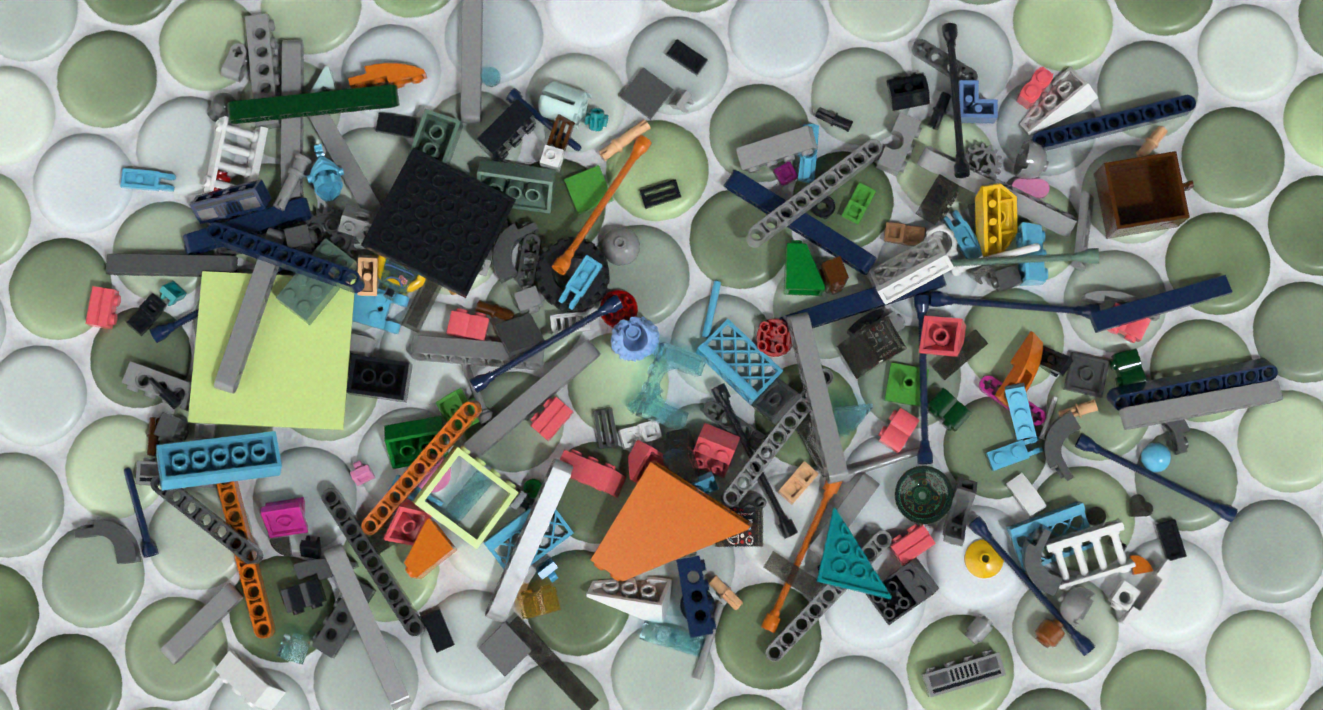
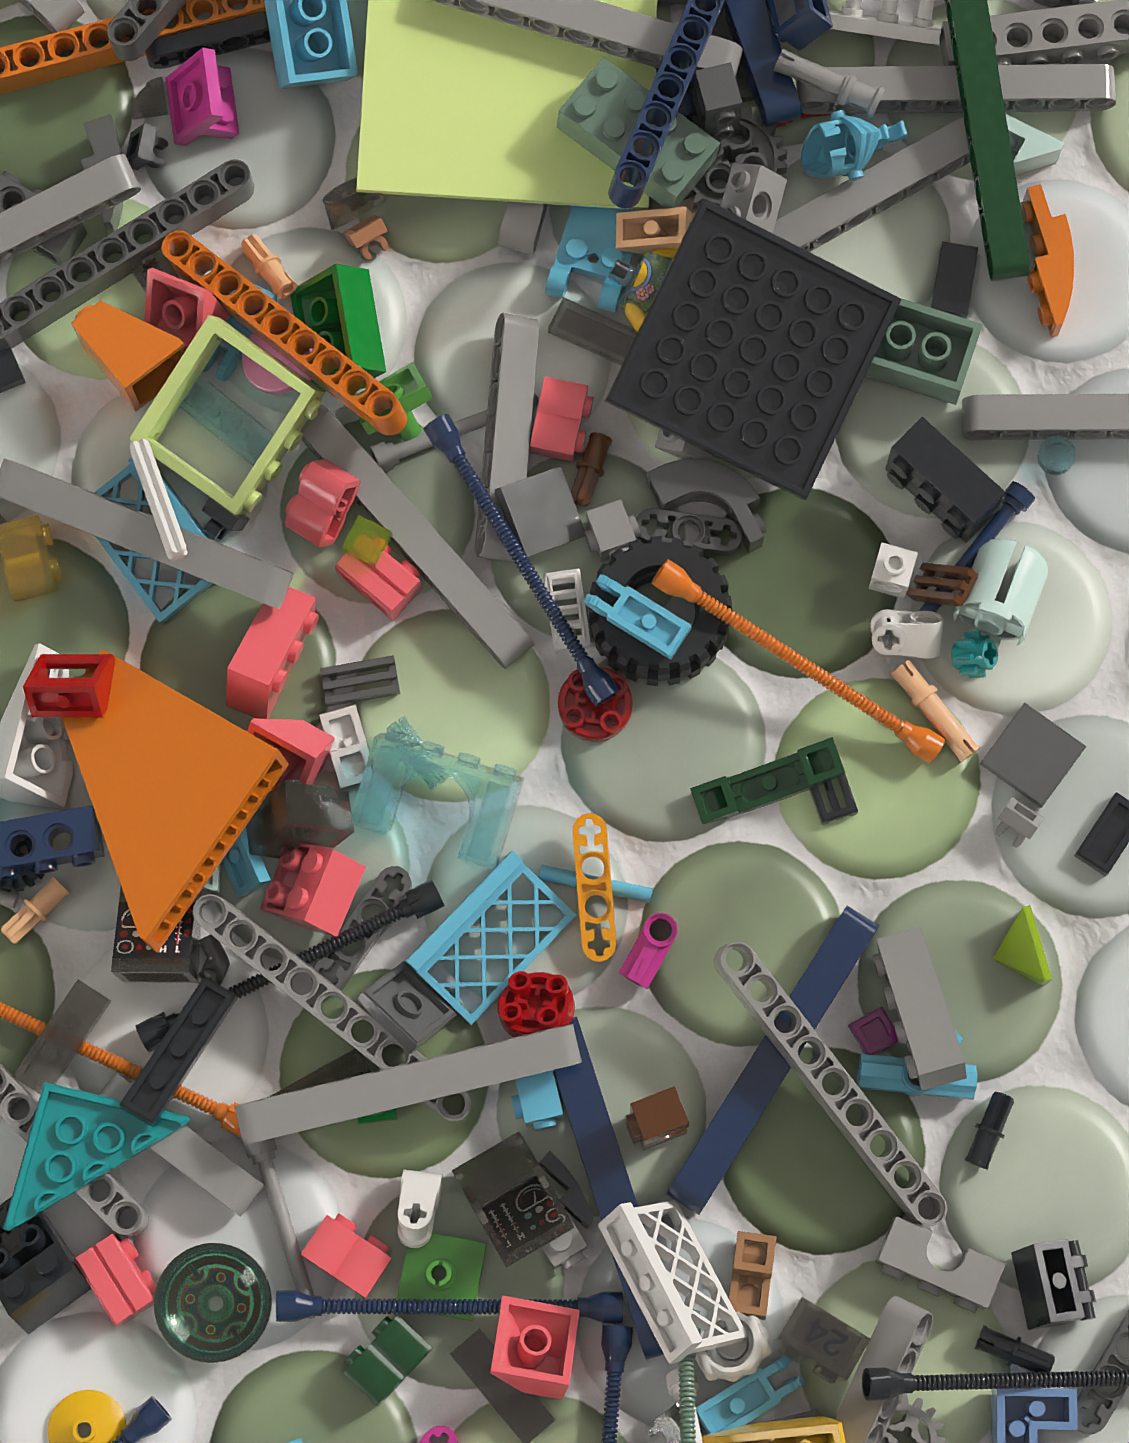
camera: 90 degrees right, 5 degrees down
(250, 512) = (221, 37): none -> black beam
(304, 596) = (54, 137): black brick -> none
(344, 439) = (345, 204): none -> clear smoke piece
(361, 473) = (280, 233): bright pink tile -> none
(363, 428) = (366, 232): none -> nougat tile
(379, 378) = (457, 258): black brick -> none
(379, 479) = (268, 266): none -> light nougat axle
(512, 447) = (321, 502): none -> coral brick
(514, 529) = (158, 500): none -> white axle
(527, 184) = (838, 520): sand green slope -> none
(532, 487) = (249, 542): green tile -> none
(535, 422) = (367, 540): none -> clear neon green tile
(547, 569) = (89, 573): dark azure tile -> none
(585, 150) = (910, 633): none -> white piece
(587, 189) = (834, 640): bright green tile -> none
(618, 574) = (69, 695): none -> red tile
(621, 246) = (720, 706): light grey cylinder -> none
(634, 338) = (531, 728): light blue hair -> none
(660, 222) = (768, 782): none -> dark green slope
(714, 308) = (589, 887): none -> light orange beam
(744, 100) = (1023, 949): none -> lime slope
(747, 283) = (648, 953): none -> dark pink piece
(798, 482) = (247, 1054): light nougat slope -> none
(800, 514) = (178, 1052): none -> black tile
(801, 273) = (670, 1054): green slope -> none
(824, 336) = (538, 1101): none -> medium azure brick
(831, 208) = (791, 1114): black piece -> none
(849, 417) = (369, 1151): clear light blue slope -> none
(858, 203) = (815, 1180): bright green slope -> none
(873, 394) = (418, 1205): none -> white piece
(957, 516) = (175, 1375): dark grey arch -> none

